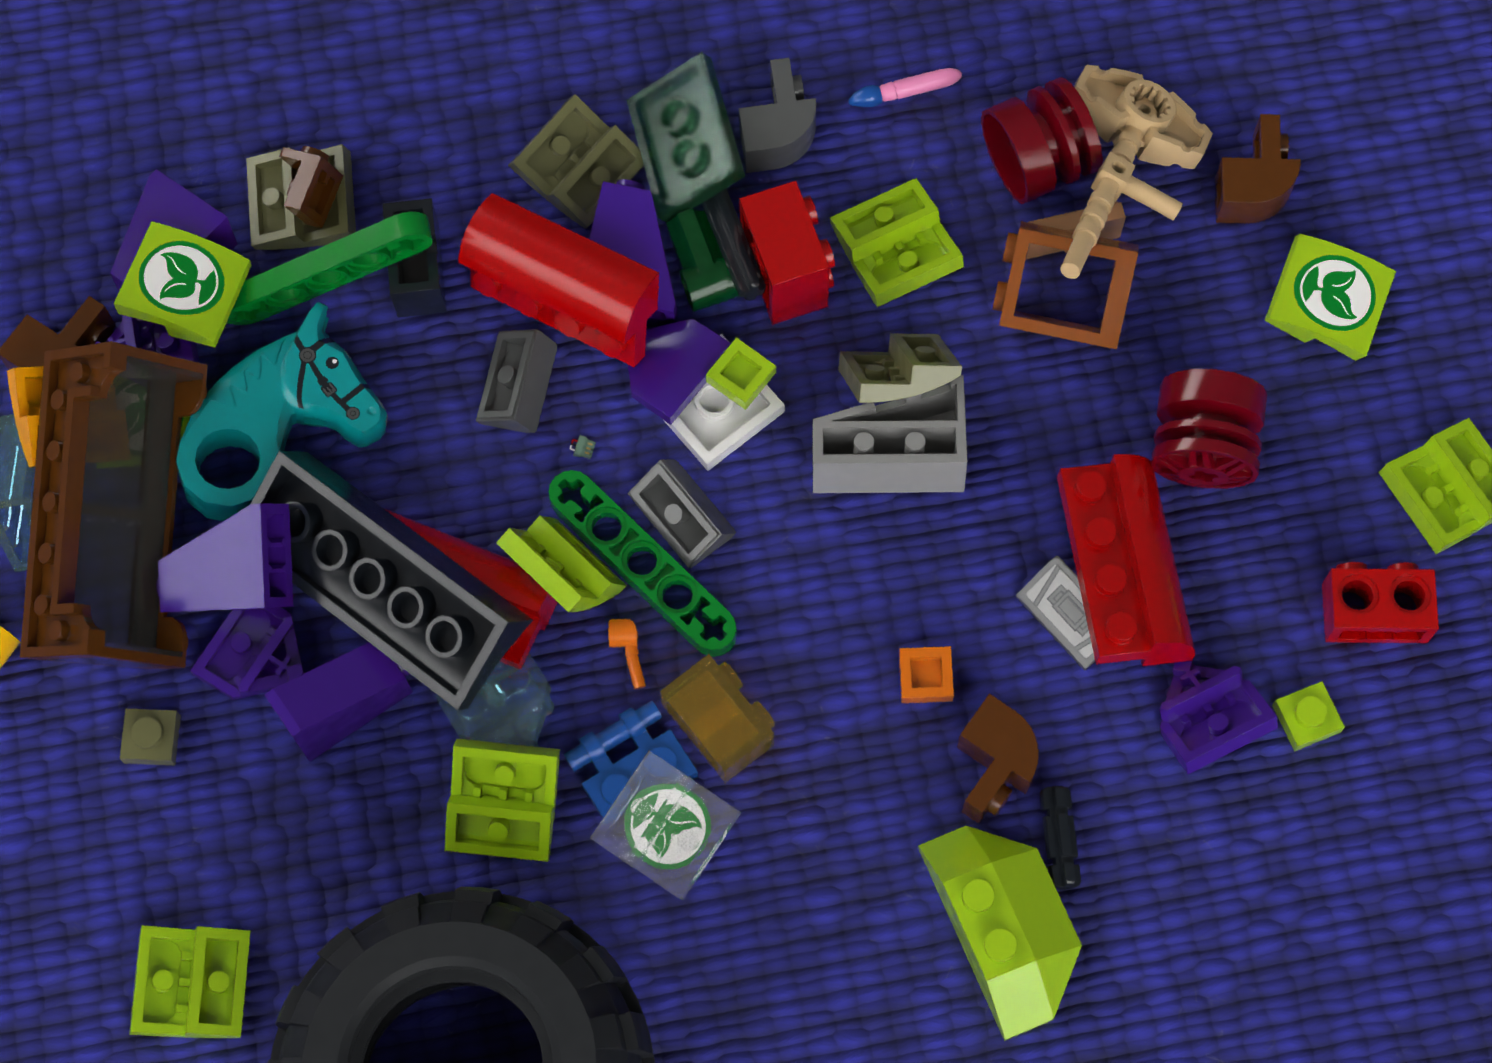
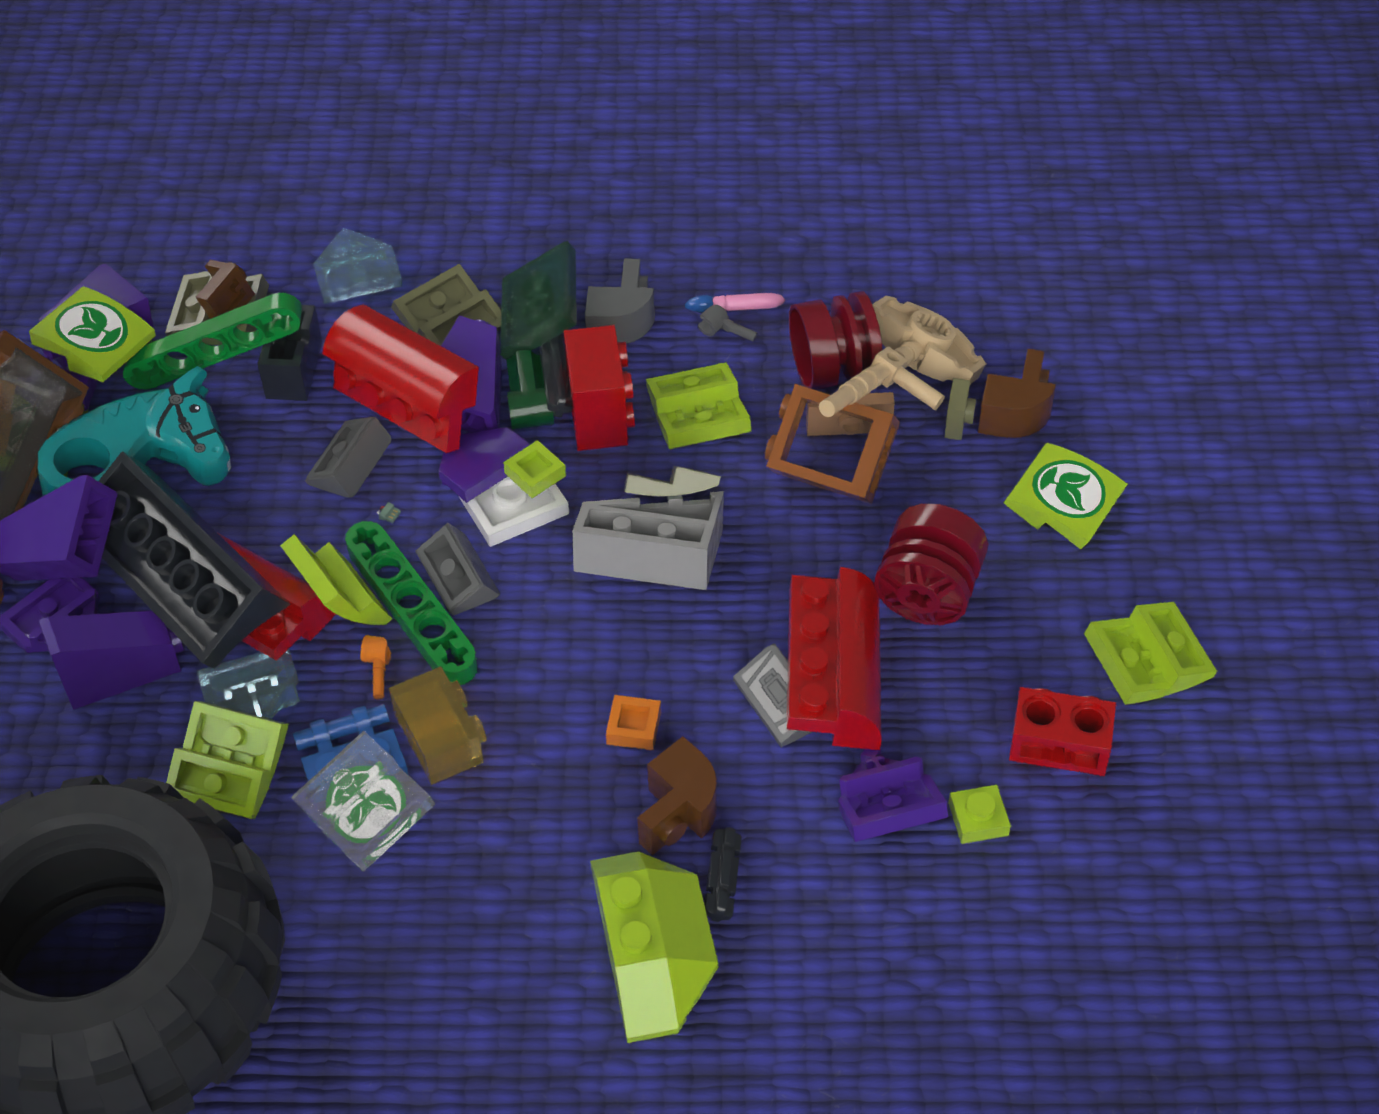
camera: 10 degrees right, 20 degrees down
(448, 111) = (355, 267): none -> clear light blue slope
(891, 116) = (717, 318): none -> dark grey hand
(1197, 202) = (960, 409): none -> olive plate

